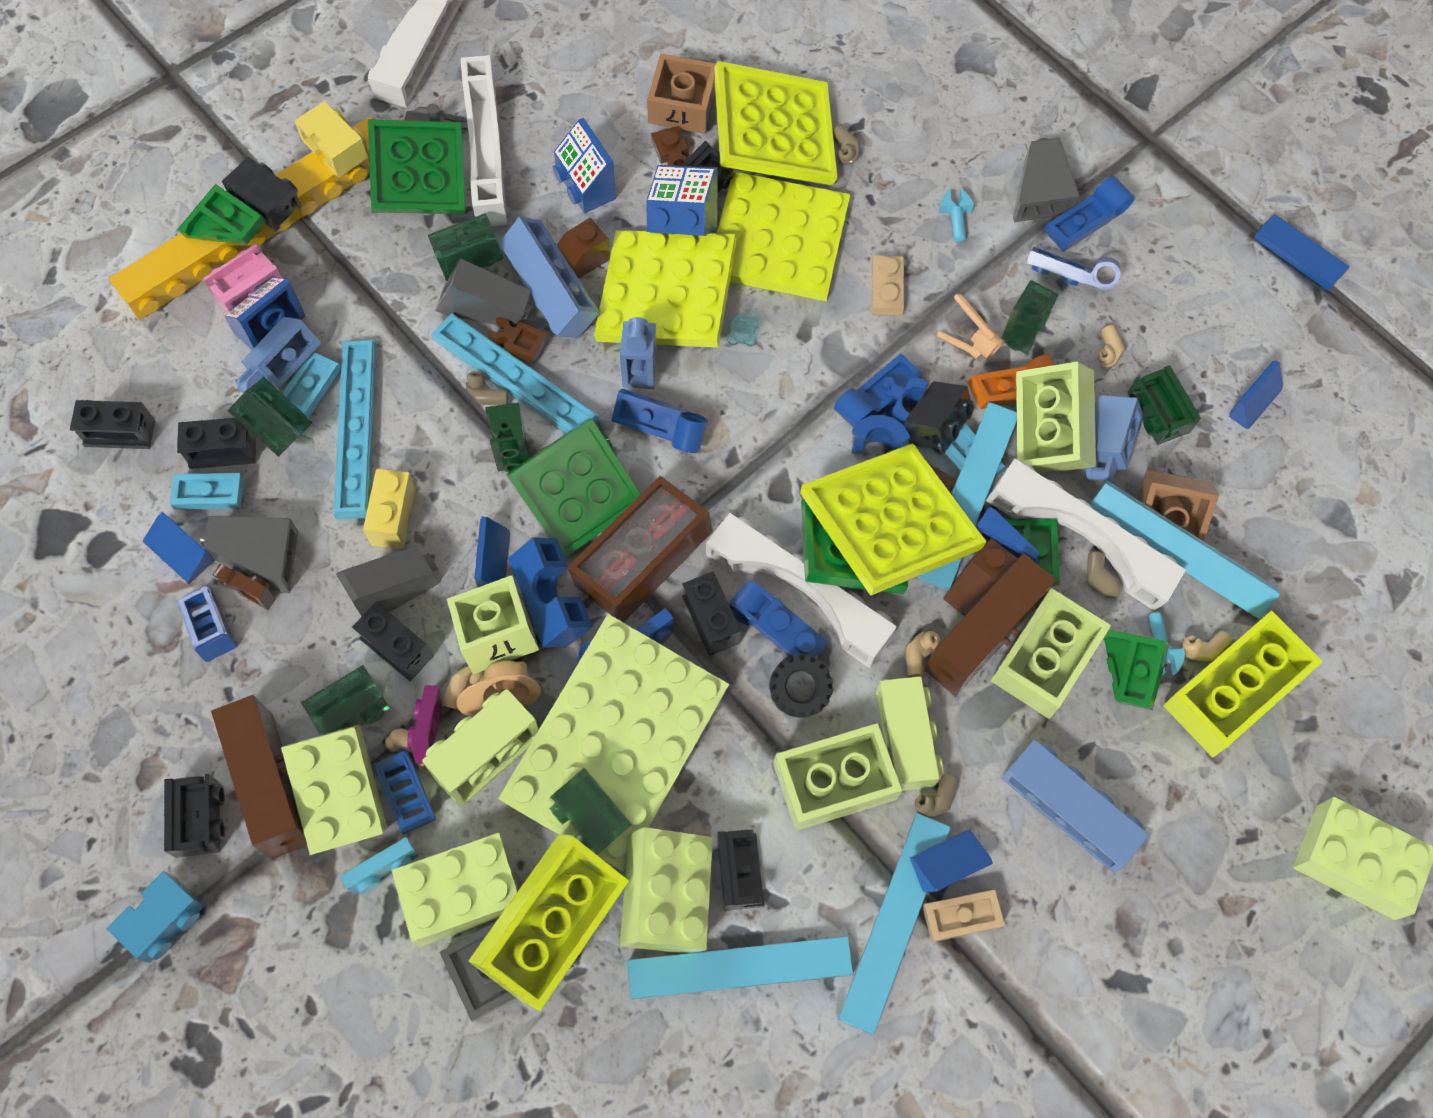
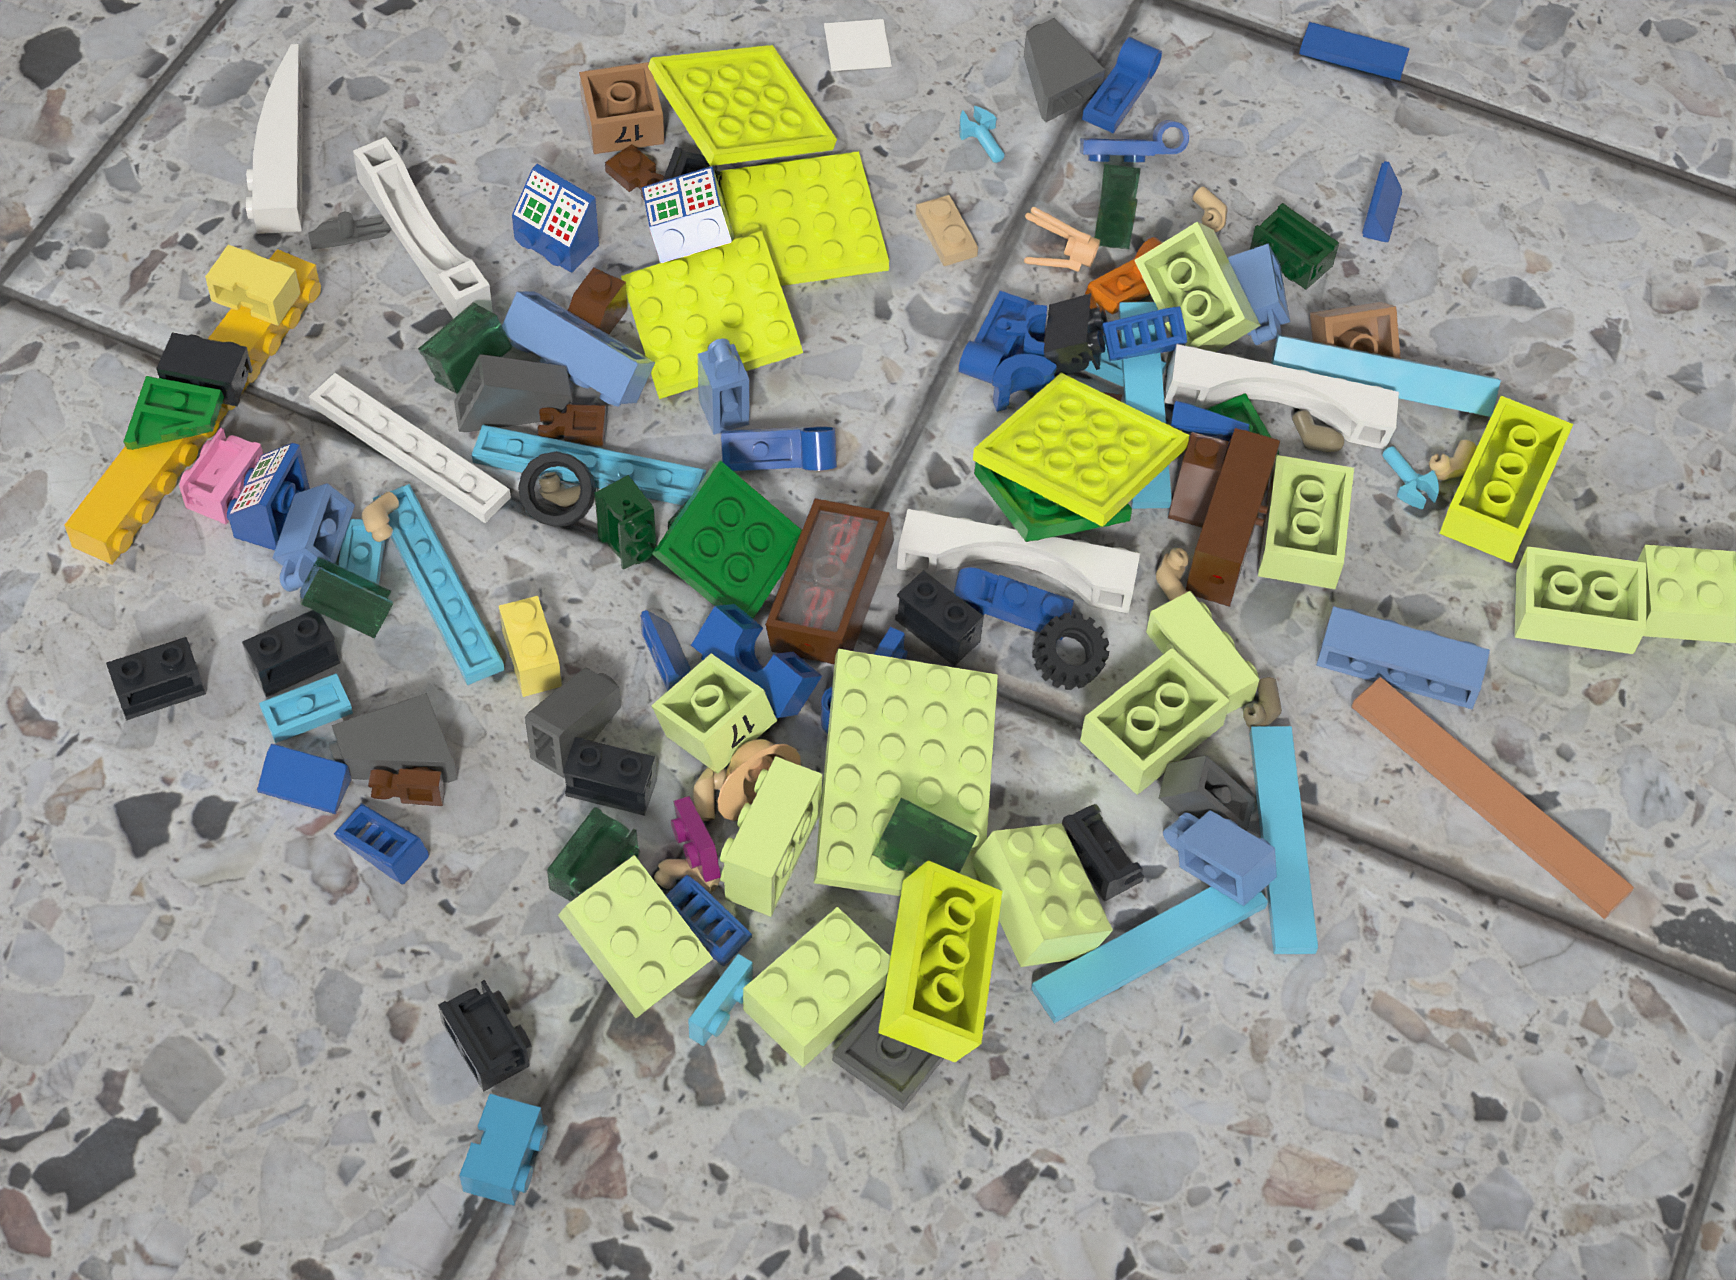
camera: 25 degrees left, 10 degrees down
(259, 776) = (547, 958): reddish brown brick -> none
(329, 358) = (376, 516): none -> tan arm
(389, 311) = (410, 447): none -> white plate
(416, 167) = (361, 284): green plate -> none
(450, 386) = (532, 472): none -> black tyre
(744, 323) = (813, 322): clear light blue plate -> none
(833, 920) = (1223, 855): none -> medium blue brick
(848, 859) = (1203, 786): none -> dark grey slope
(849, 144) = (830, 103): dark tan arm -> none
(897, 105) = (857, 45): none -> white sticker
(949, 861) = (1308, 756): blue slope -> none
(963, 915) = (1347, 803): tan plate -> none
(1008, 429) = (1157, 318): none -> blue slope
(1092, 966) = (1493, 798): none -> nougat tile
(1135, 667) = (1395, 505): green wing -> none
(1254, 821) = (1580, 600): none -> yellowish green brick

